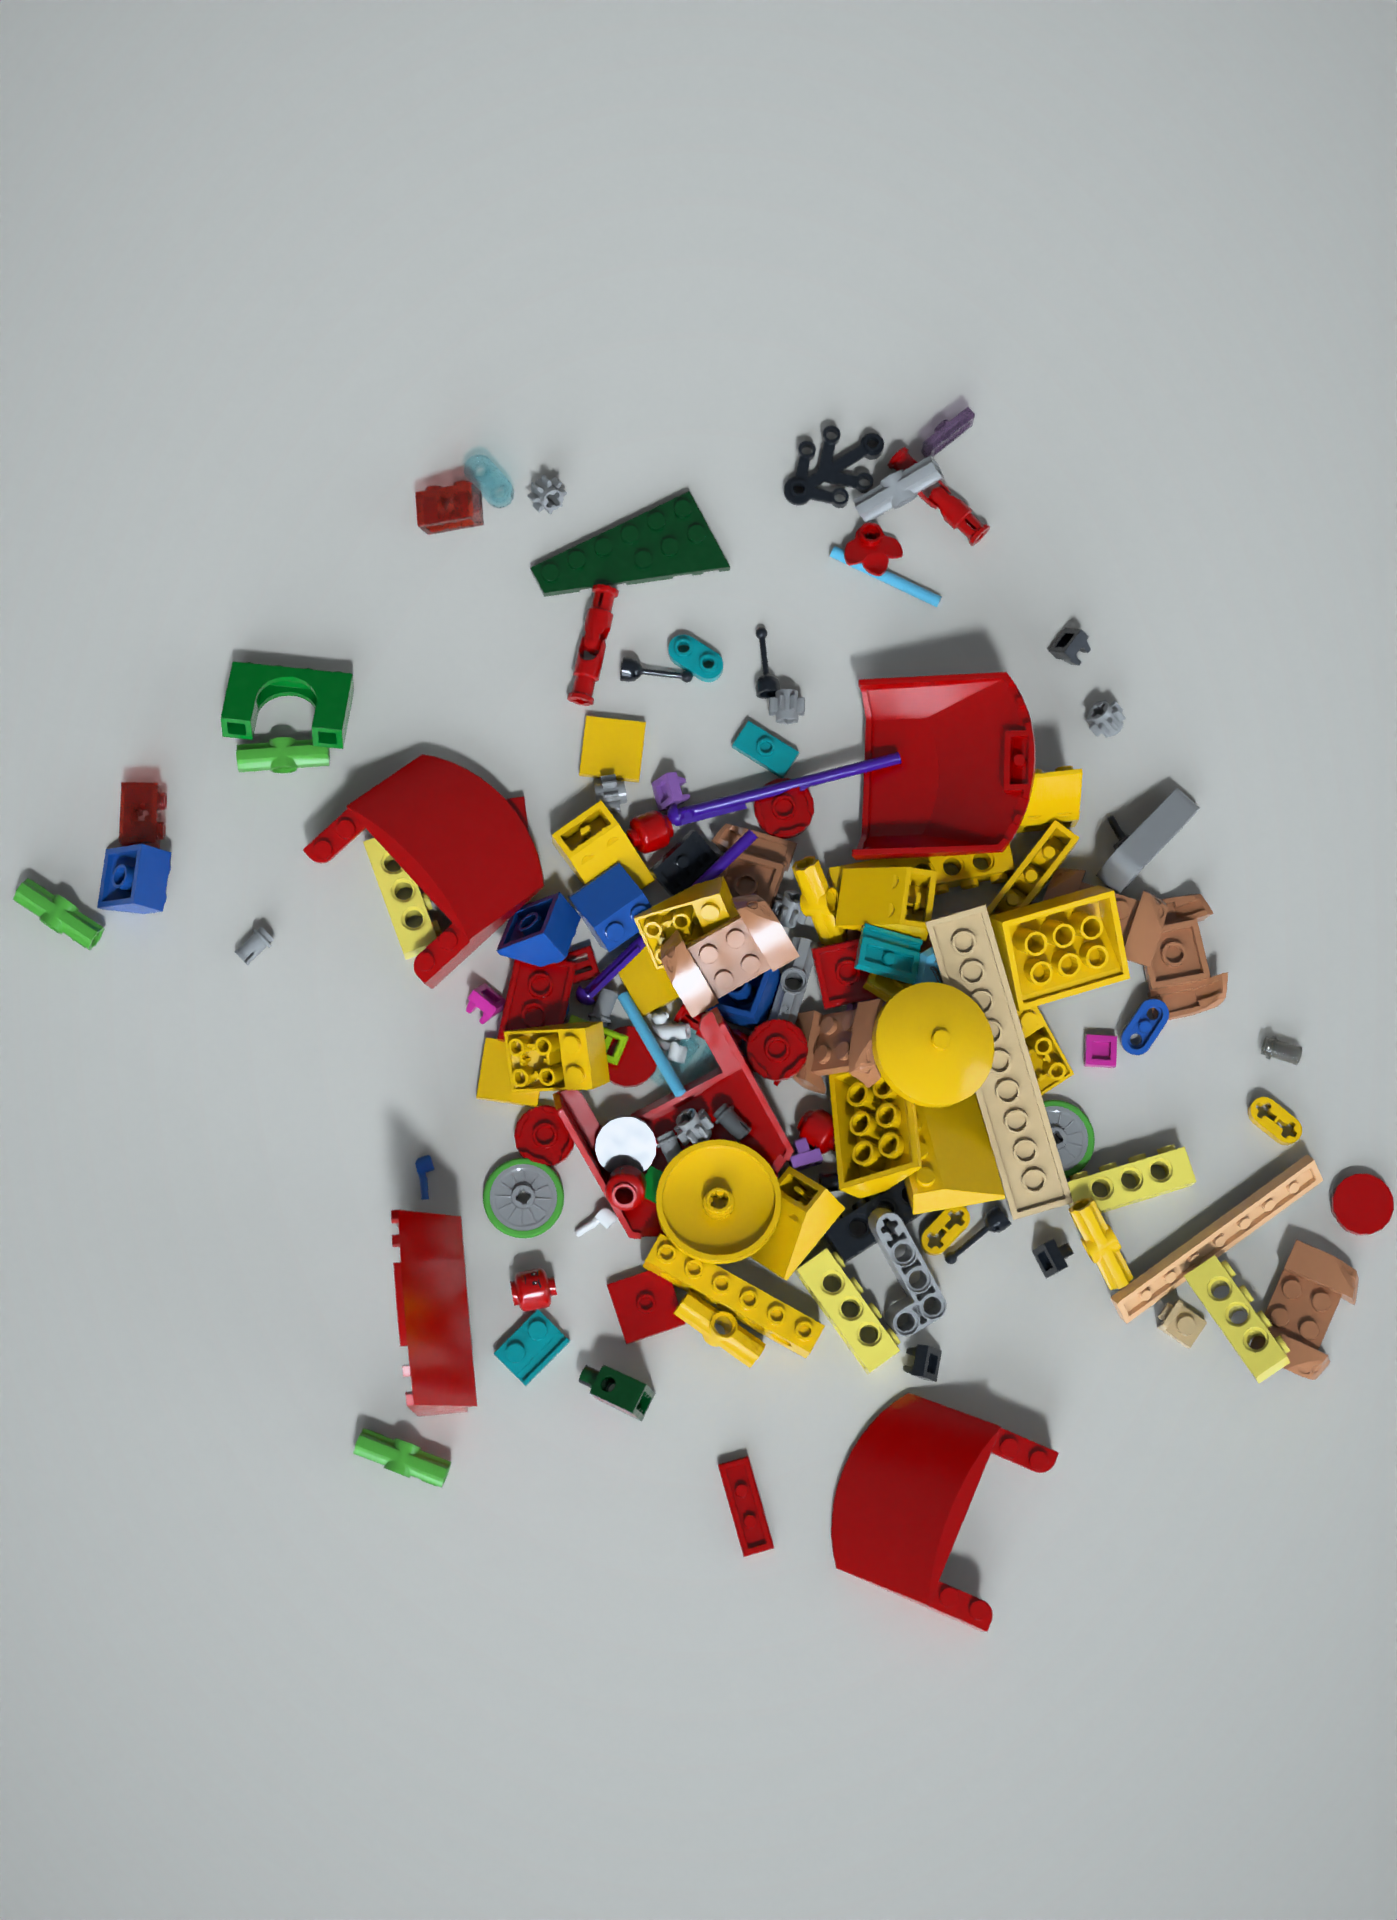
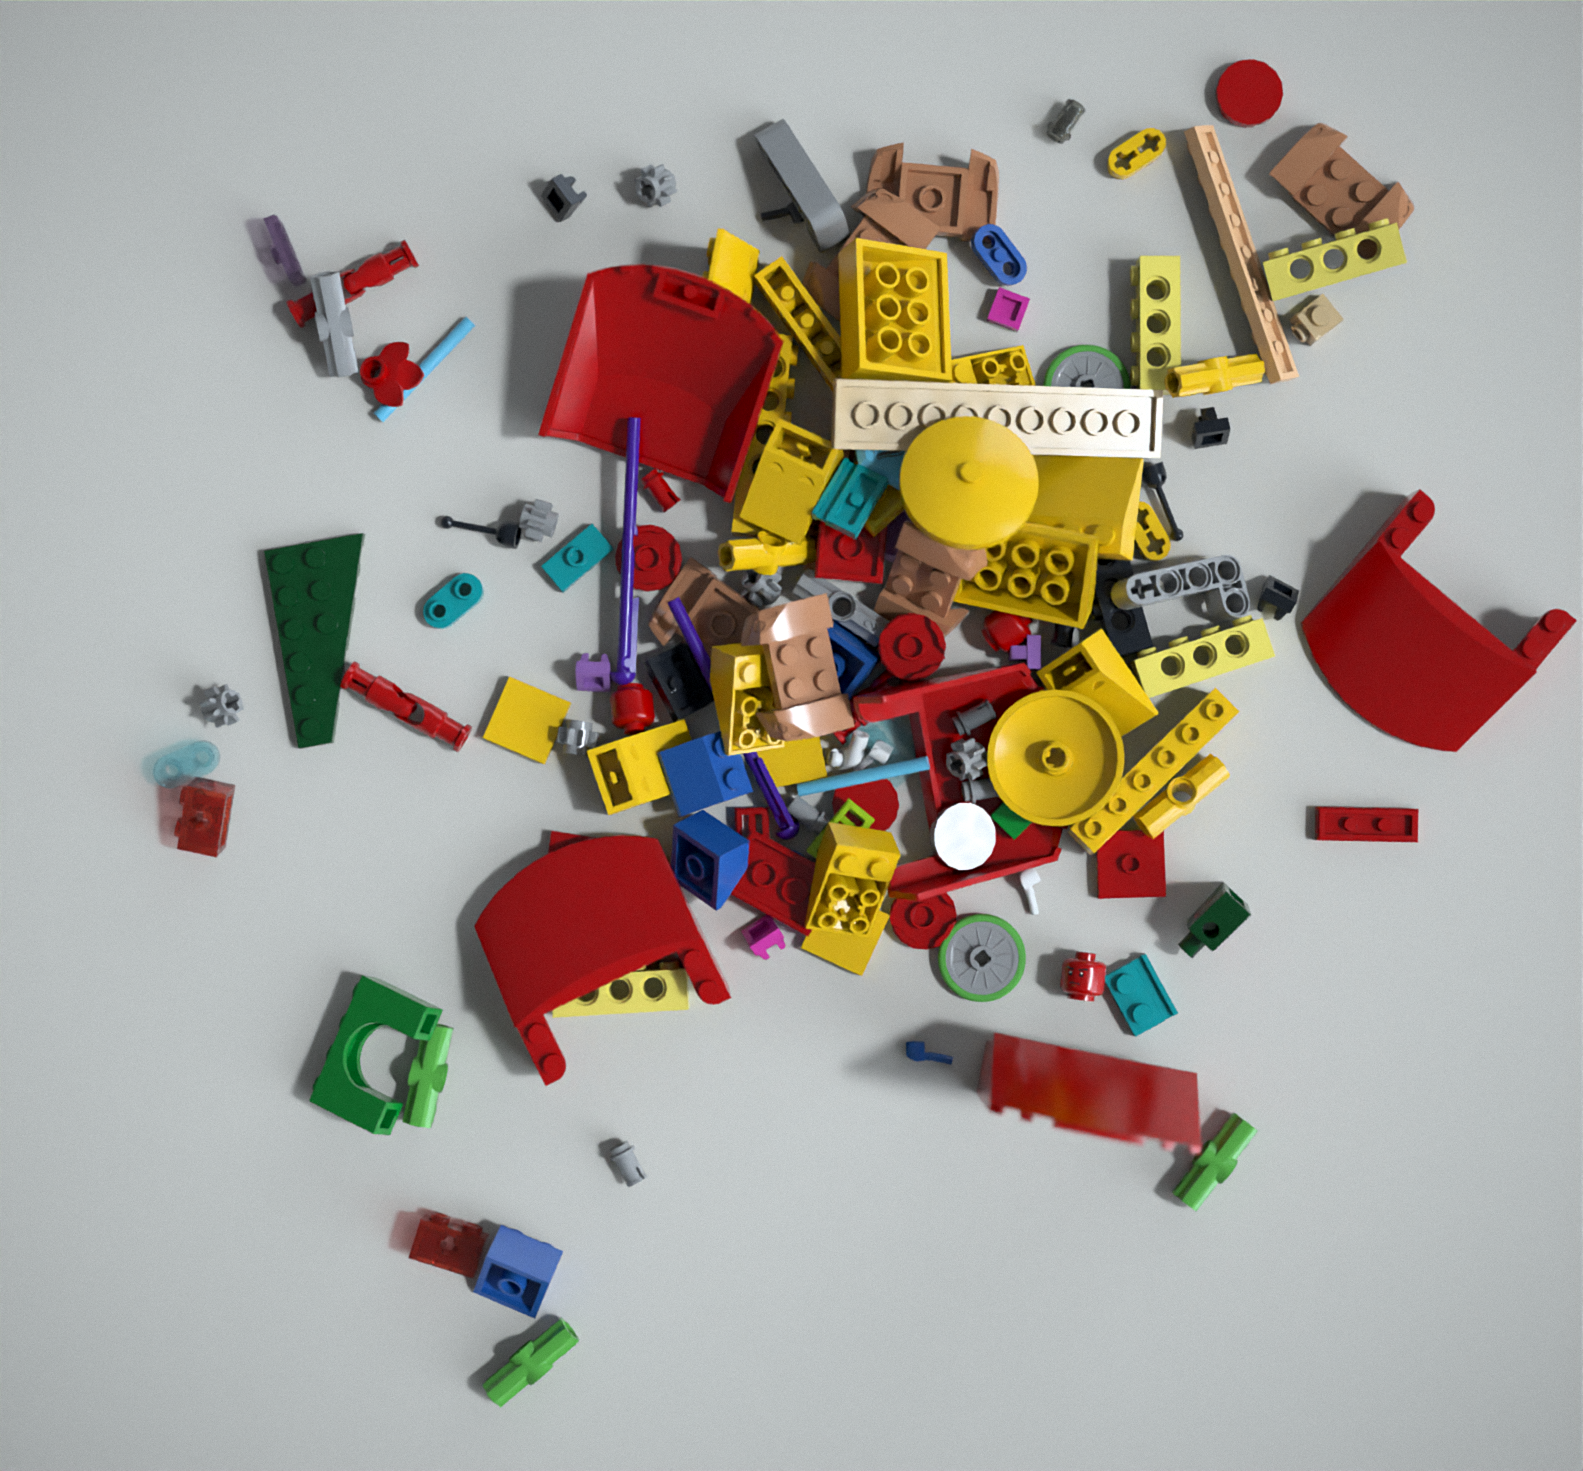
camera: 65 degrees left, 10 degrees up
(625, 1188) = (1010, 849): red head -> none
(632, 670) = (446, 672): black hinge -> none
(830, 471) = (288, 392): black plant -> none
(845, 800) = (660, 490): none -> red pin

